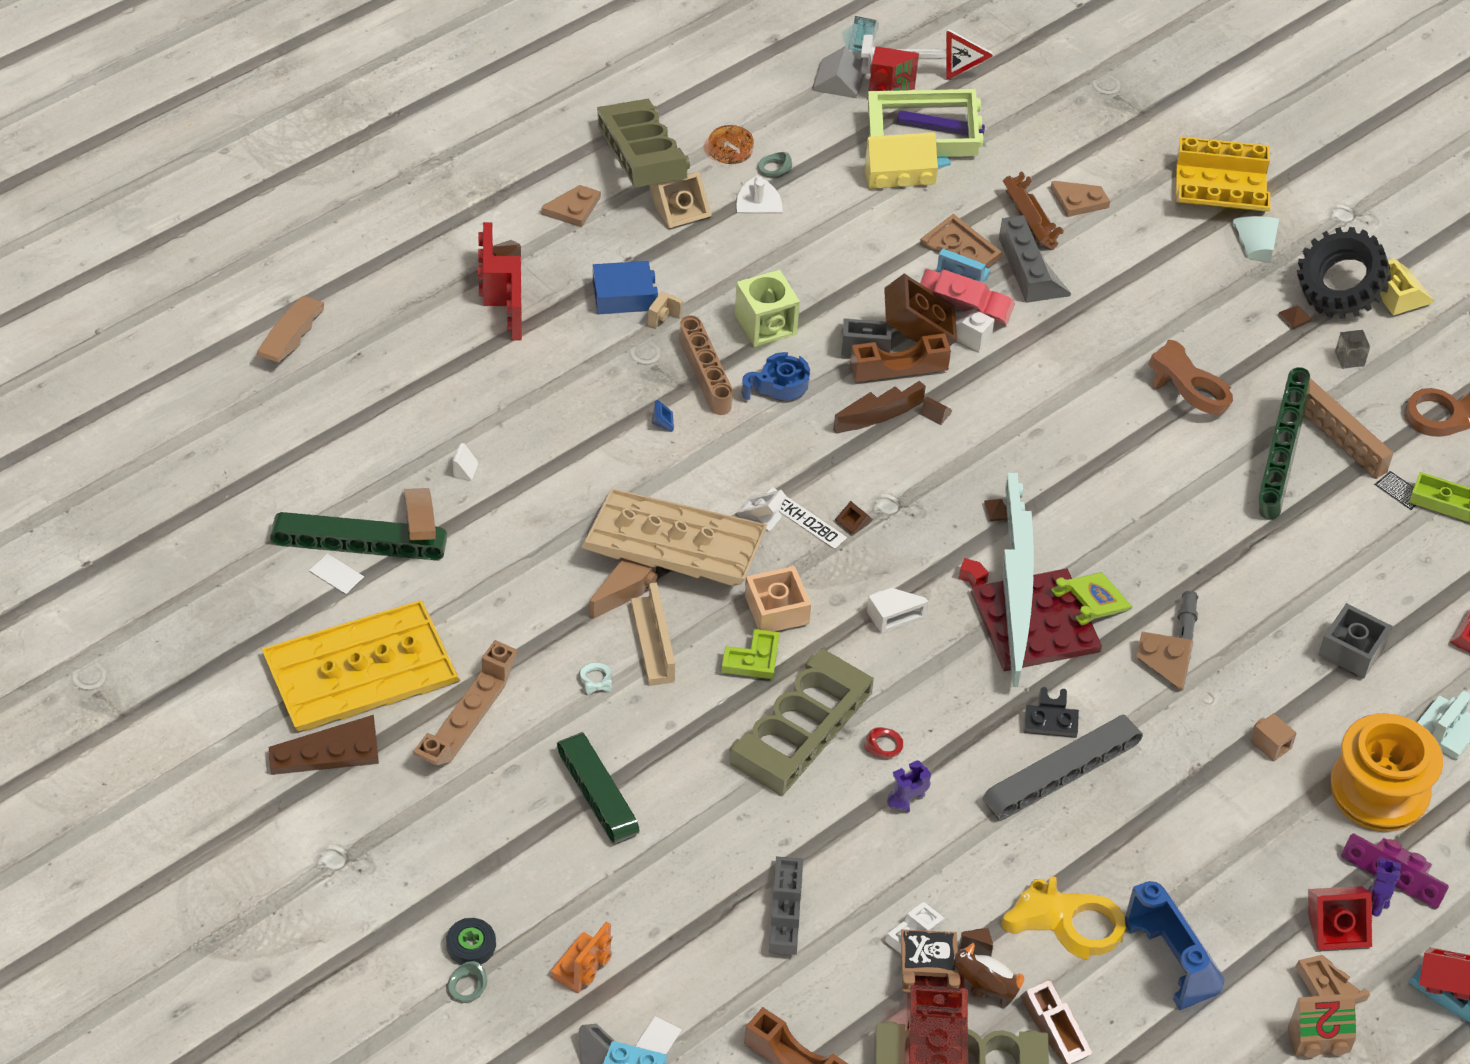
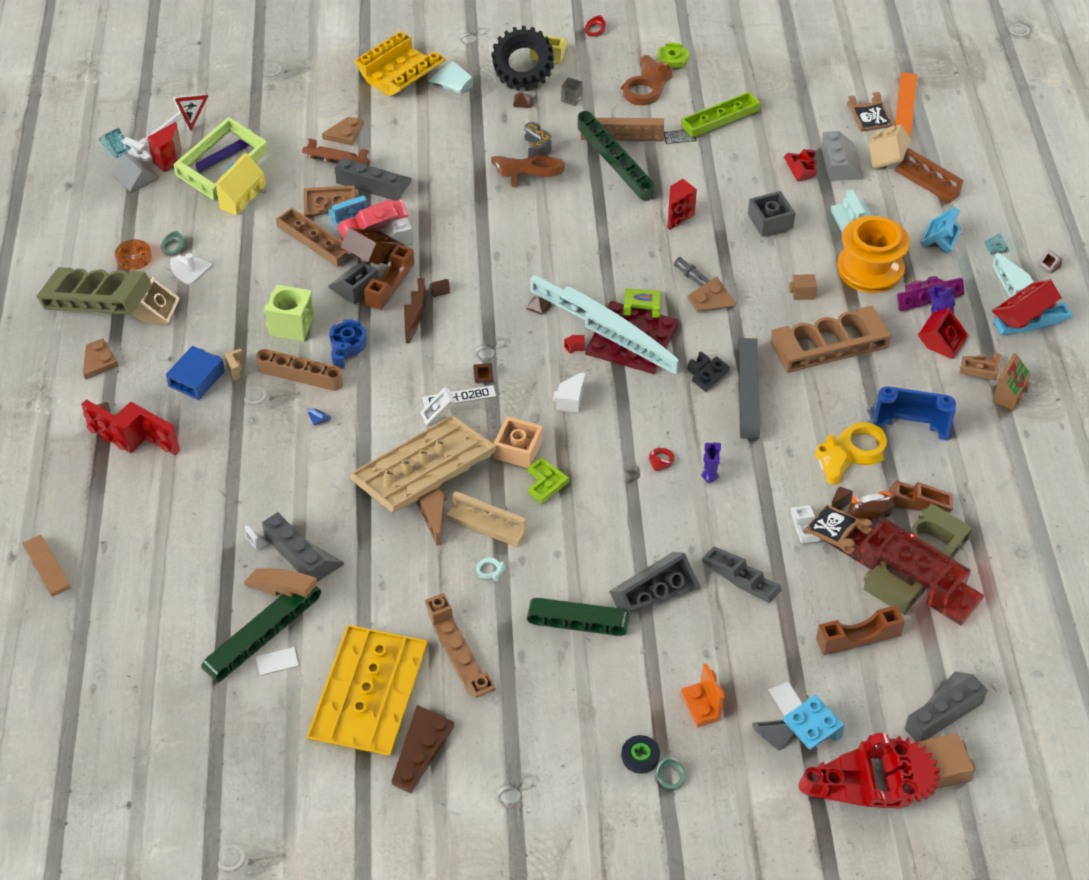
camera: 50 degrees left, 0 degrees up
(477, 509) = (297, 550): none -> dark grey wedge
(700, 831) = (657, 582): none -> dark grey wedge
(775, 768) = (624, 523): olive fence -> none
(897, 252) = (313, 236): none -> medium nougat piece
(1172, 761) = (865, 319): none -> medium nougat fence
(1245, 370) = (540, 140): none -> dark grey animal
(1271, 544) = (681, 203): none -> red slope

